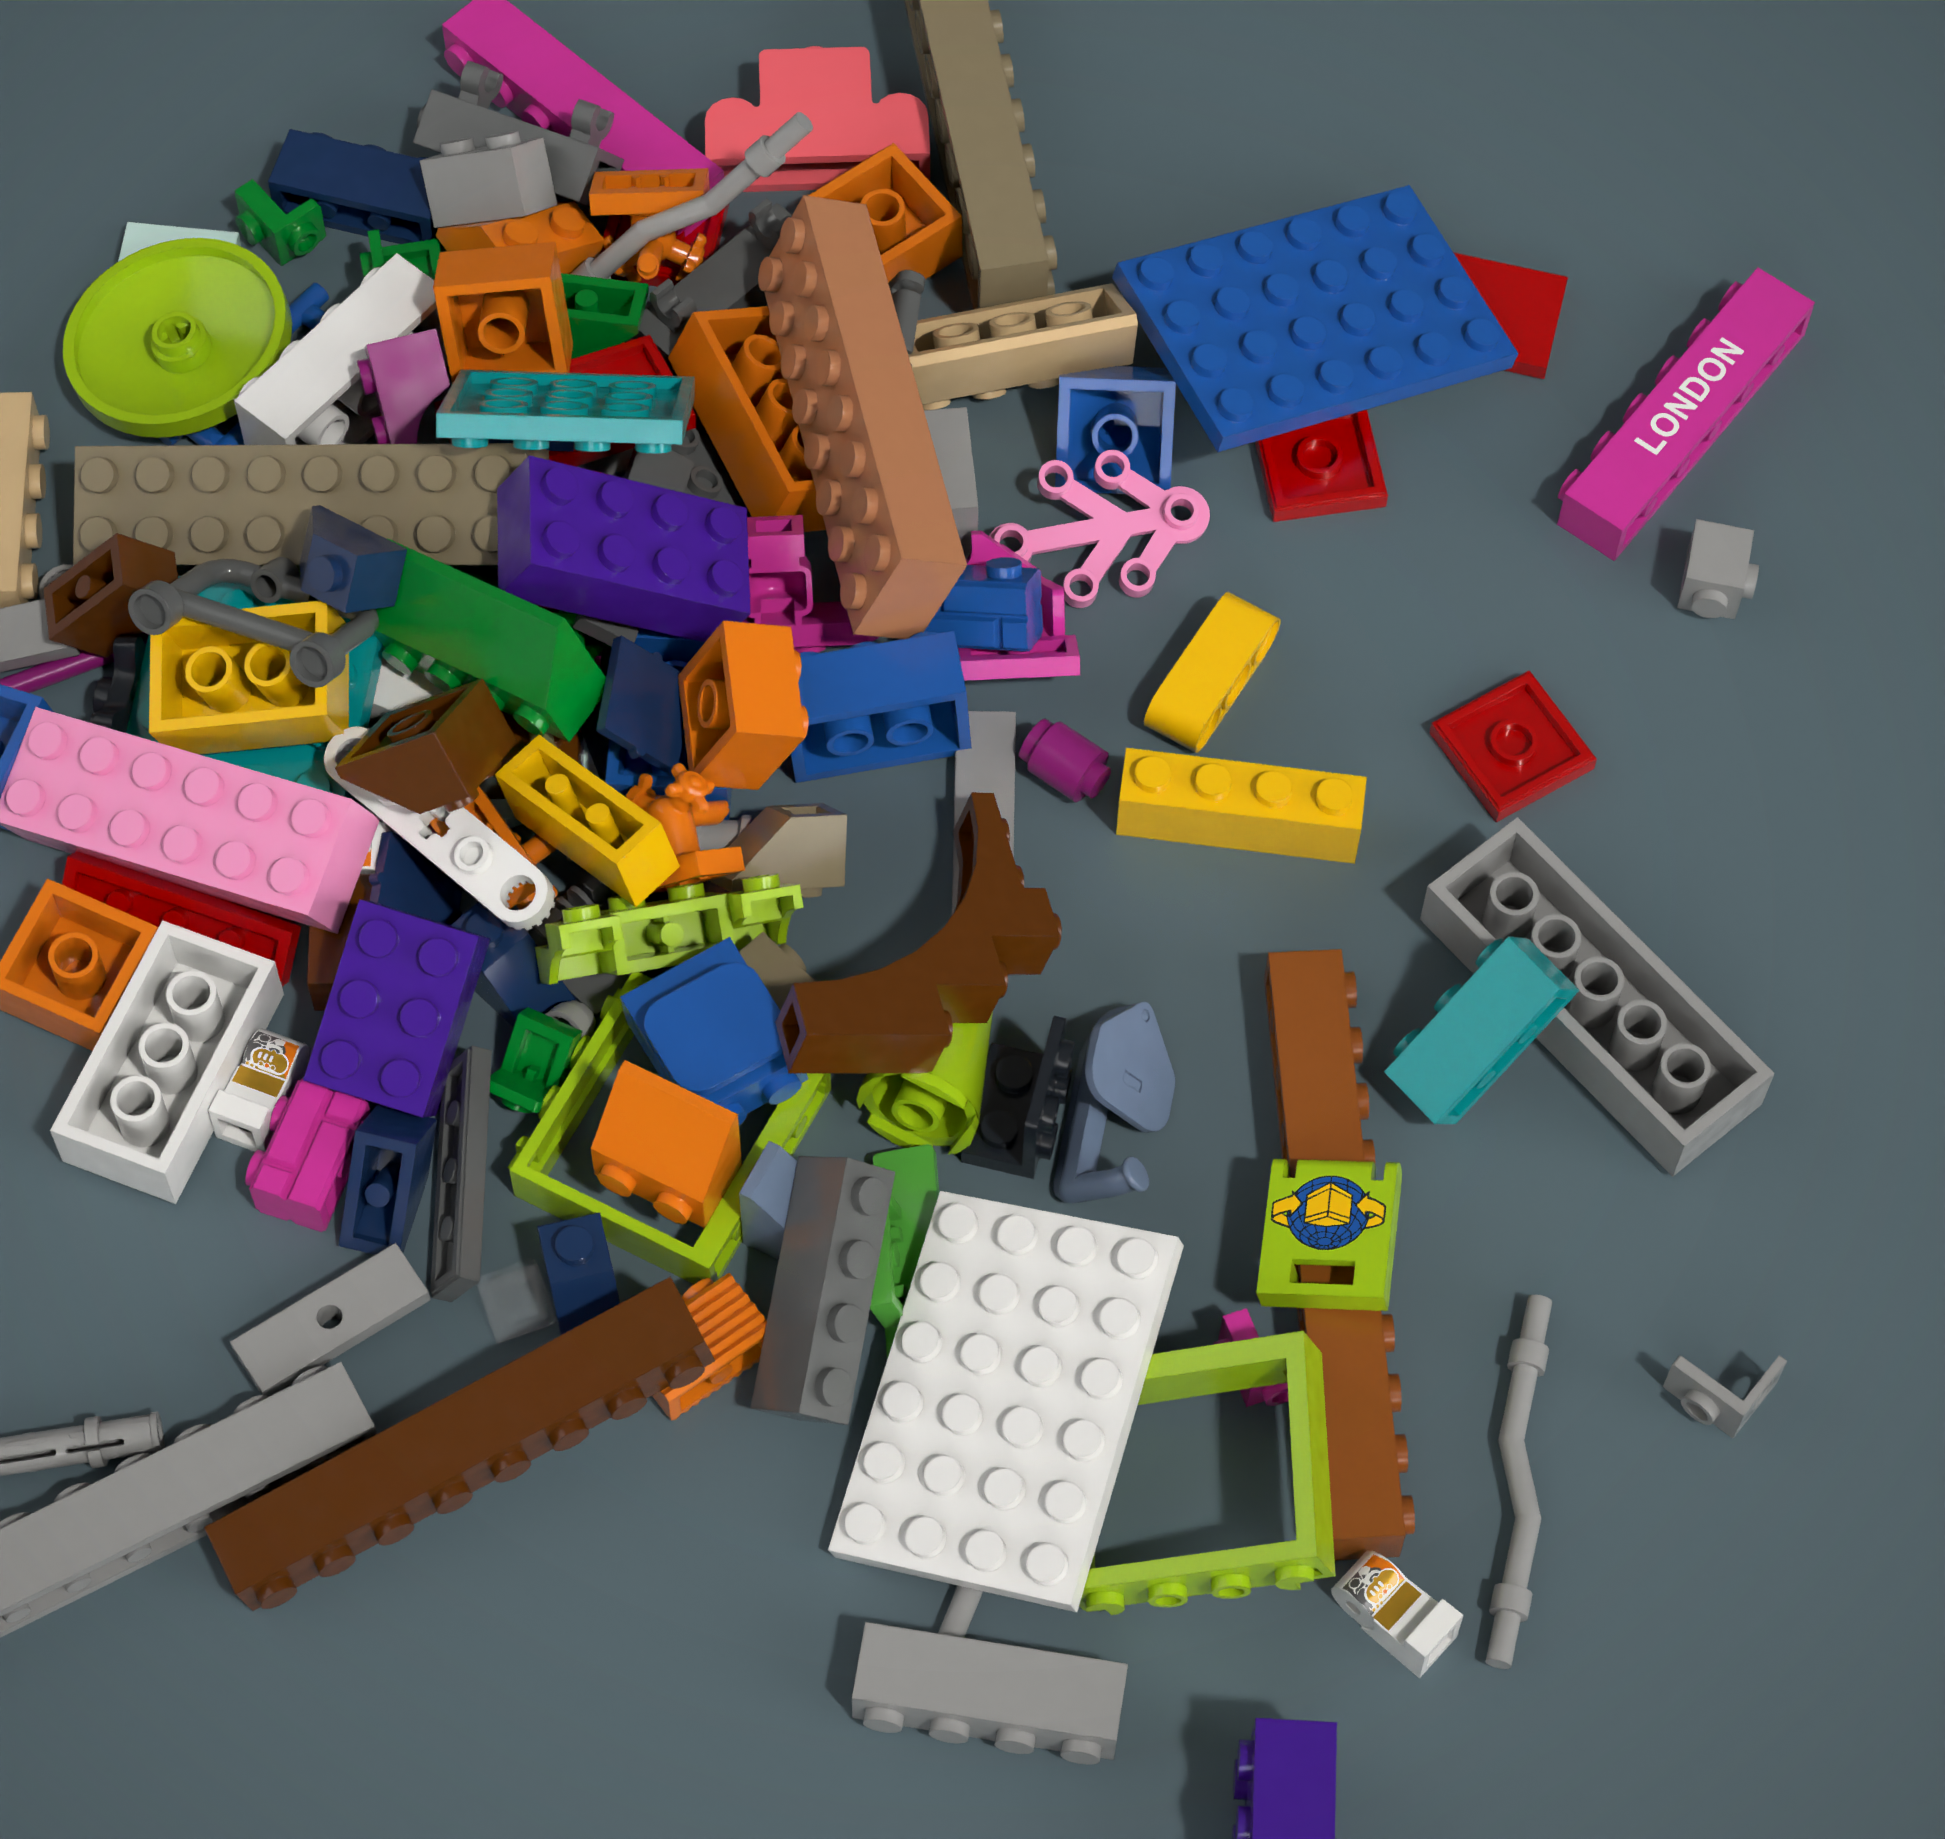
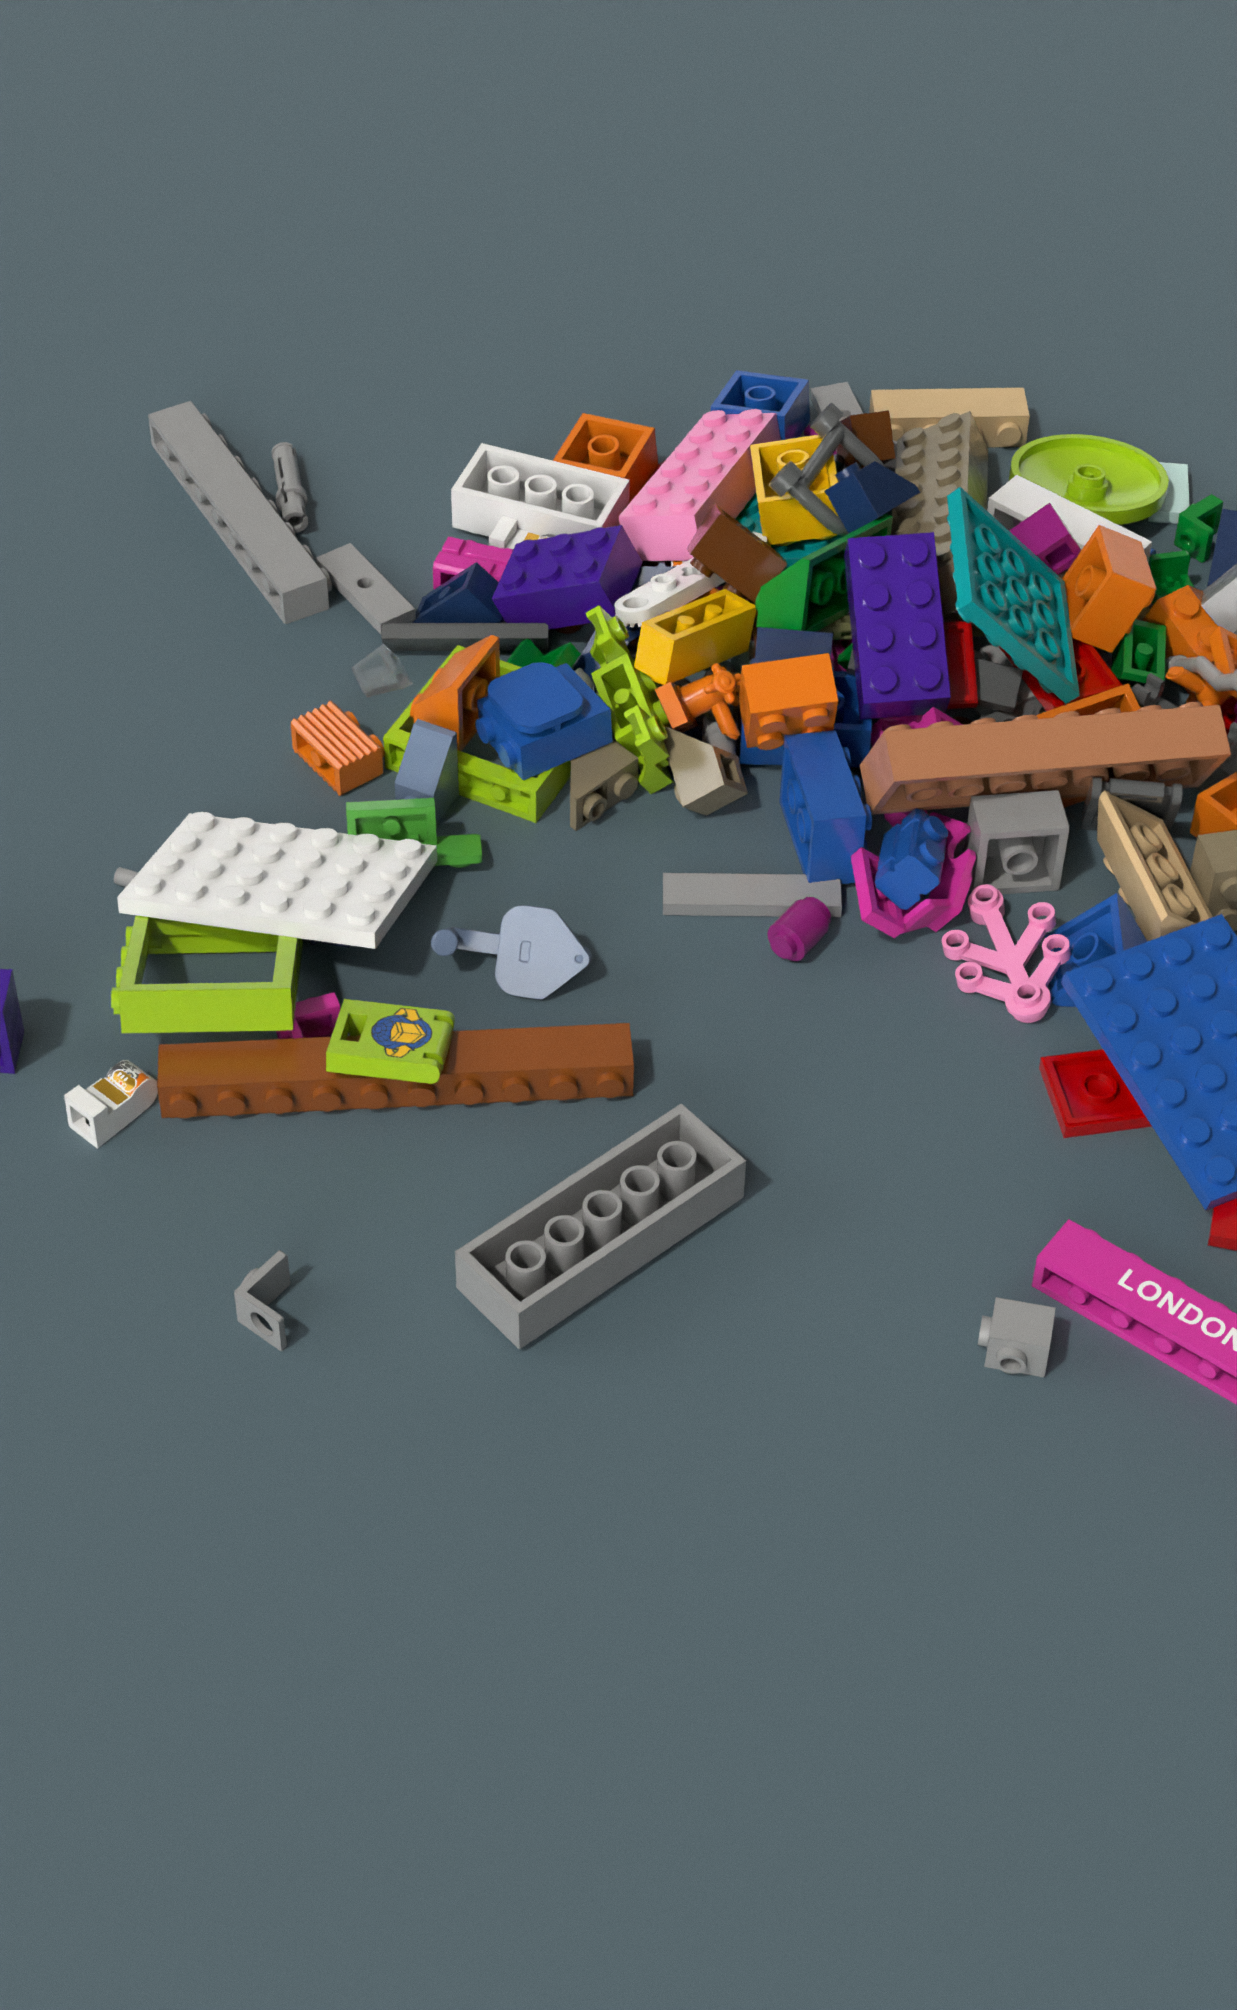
camera: 90 degrees right, 15 degrees down
(459, 1446) = (268, 632): reddish brown brick -> none
(578, 1269) = (381, 690): dark blue slope -> none
(823, 1289) = (358, 780): dark grey brick -> none
(906, 1011) = (589, 826): reddish brown arch -> none
(935, 1105) = (539, 851): lime cone -> none
(988, 1693) = (77, 888): light grey brick -> none
(1022, 1105) = (498, 887): black bracket -> none
(1212, 672) = (886, 1014): yellow beam -> none
(1241, 805) = (764, 1024): yellow brick -> none
(1480, 1029) = (559, 1135): teal brick -> none
(1511, 1598) = (302, 1187): light grey bar -> none
(1512, 746) = (841, 1205): red tile -> none

